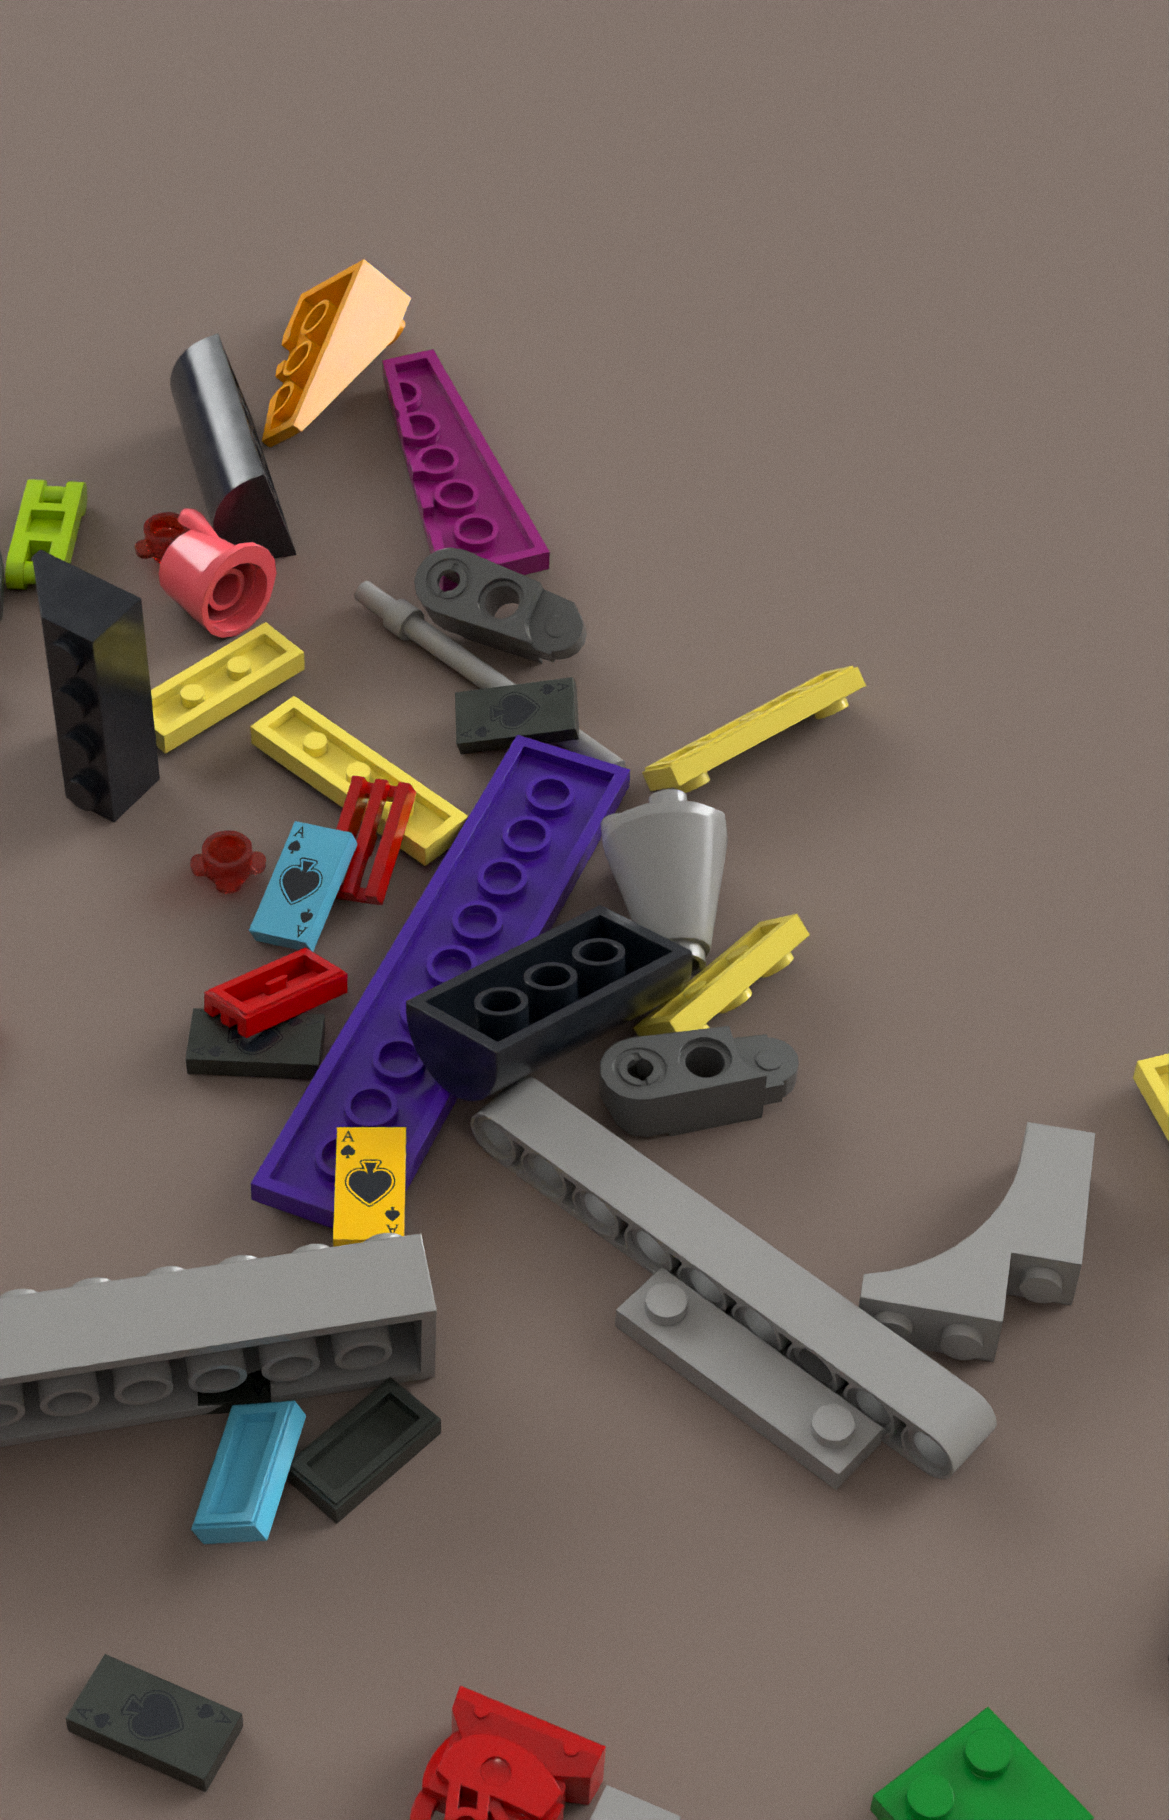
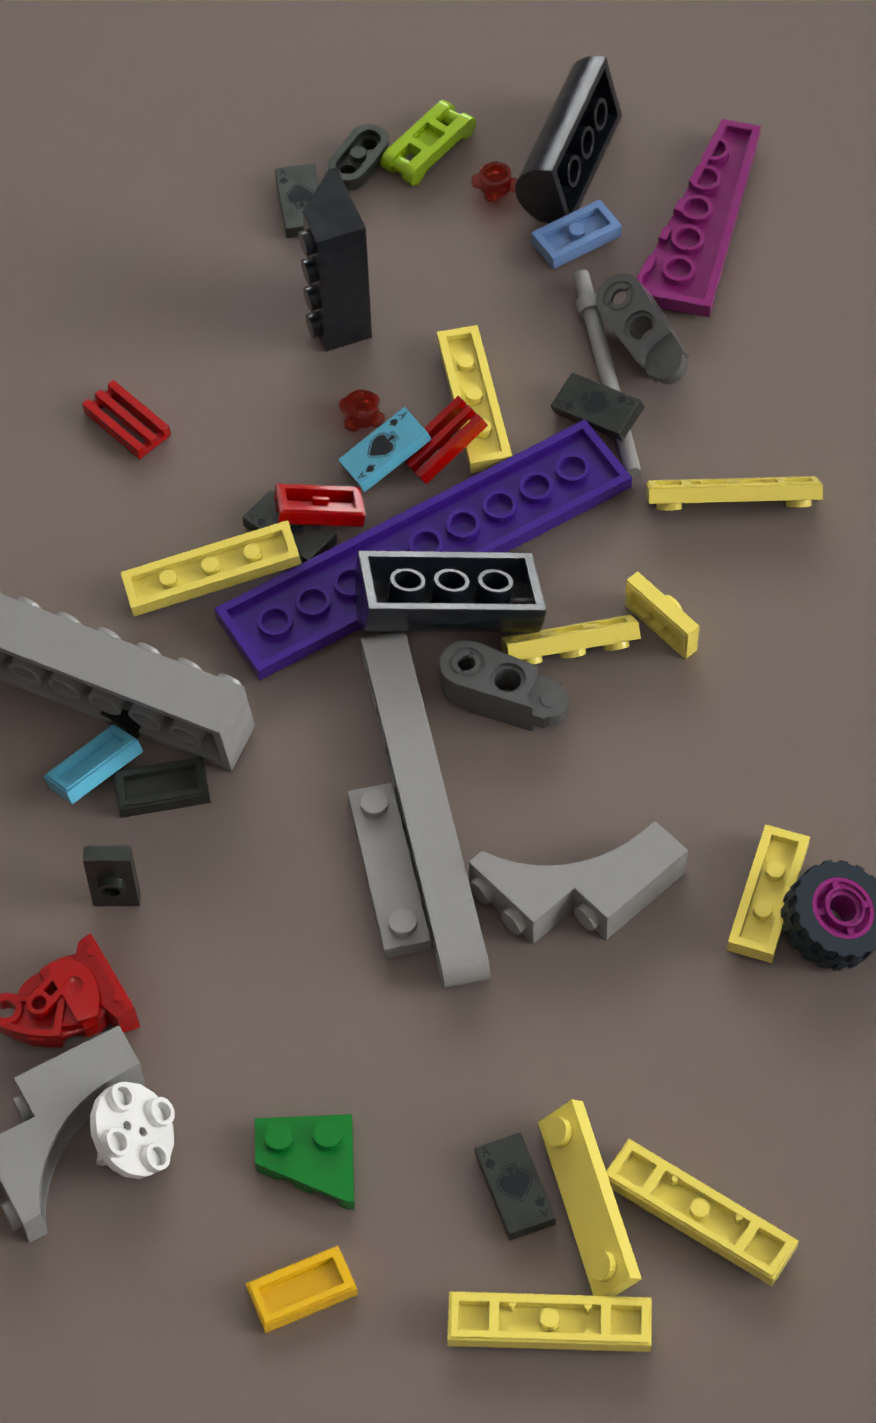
camera: 40 degrees right, 10 degrees up
(200, 1140) = (210, 568): none -> light yellow plate
(215, 580) = (492, 224): coral hat -> none
(222, 684) = (442, 295): light yellow plate -> none
(320, 550) = (576, 234): none -> medium blue plate
(330, 342) = (711, 85): light orange wedge -> none
(369, 1183) = (267, 648): yellow tile -> none
(422, 1591) = (111, 875): none -> pearl dark grey plate
(670, 867) = (589, 559): light grey cone -> none
(821, 900) = (662, 615): none -> light yellow plate

